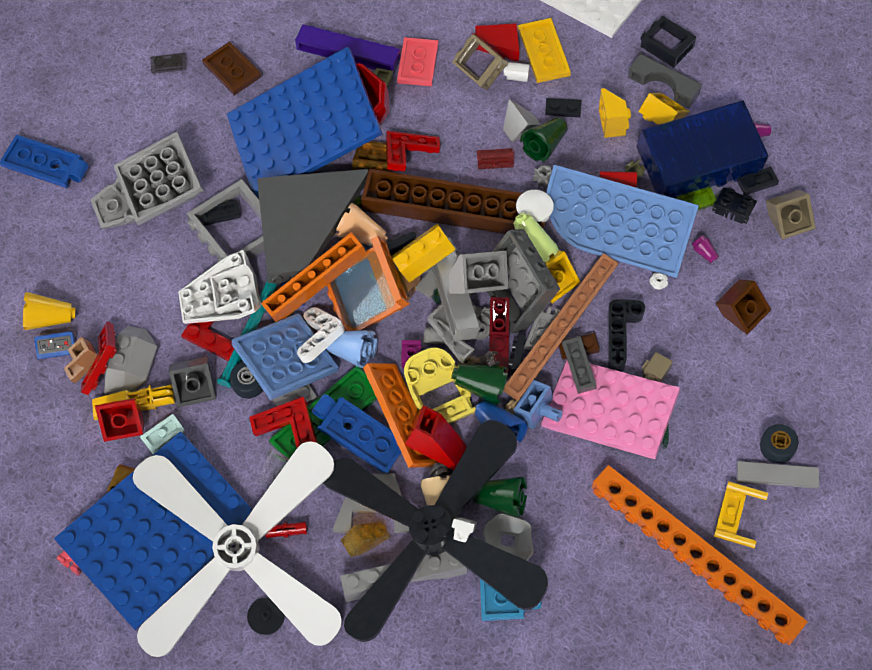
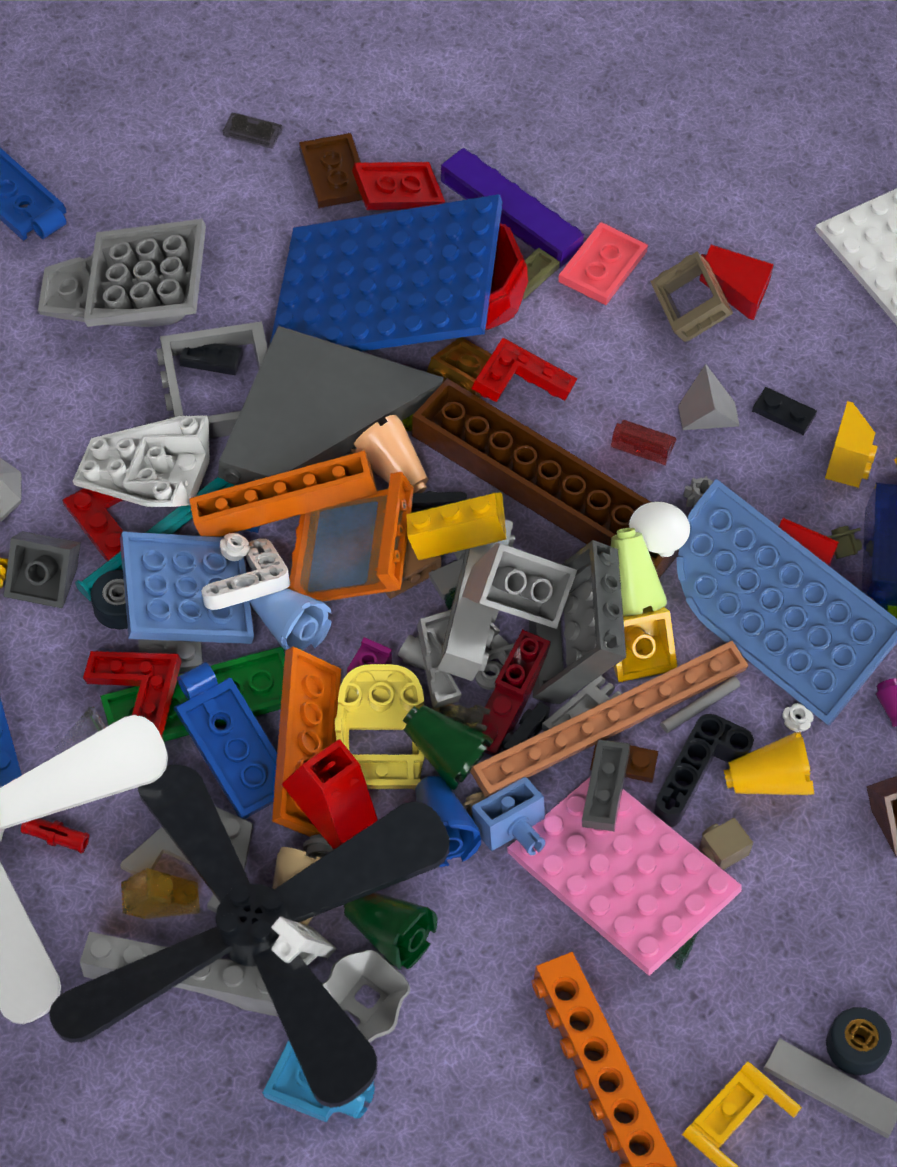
camera: 20 degrees right, 5 degrees down
(275, 63) = (397, 185): none -> red plate
(298, 320) = (234, 546): none -> white plate
(517, 71) = (741, 333): white brick -> none
(543, 139) = (729, 441): dark green cone -> none
(544, 50) = (797, 319): yellow plate -> none
(602, 297) = (700, 704): none -> light grey bar
(662, 315) = (773, 769): none -> yellow cone

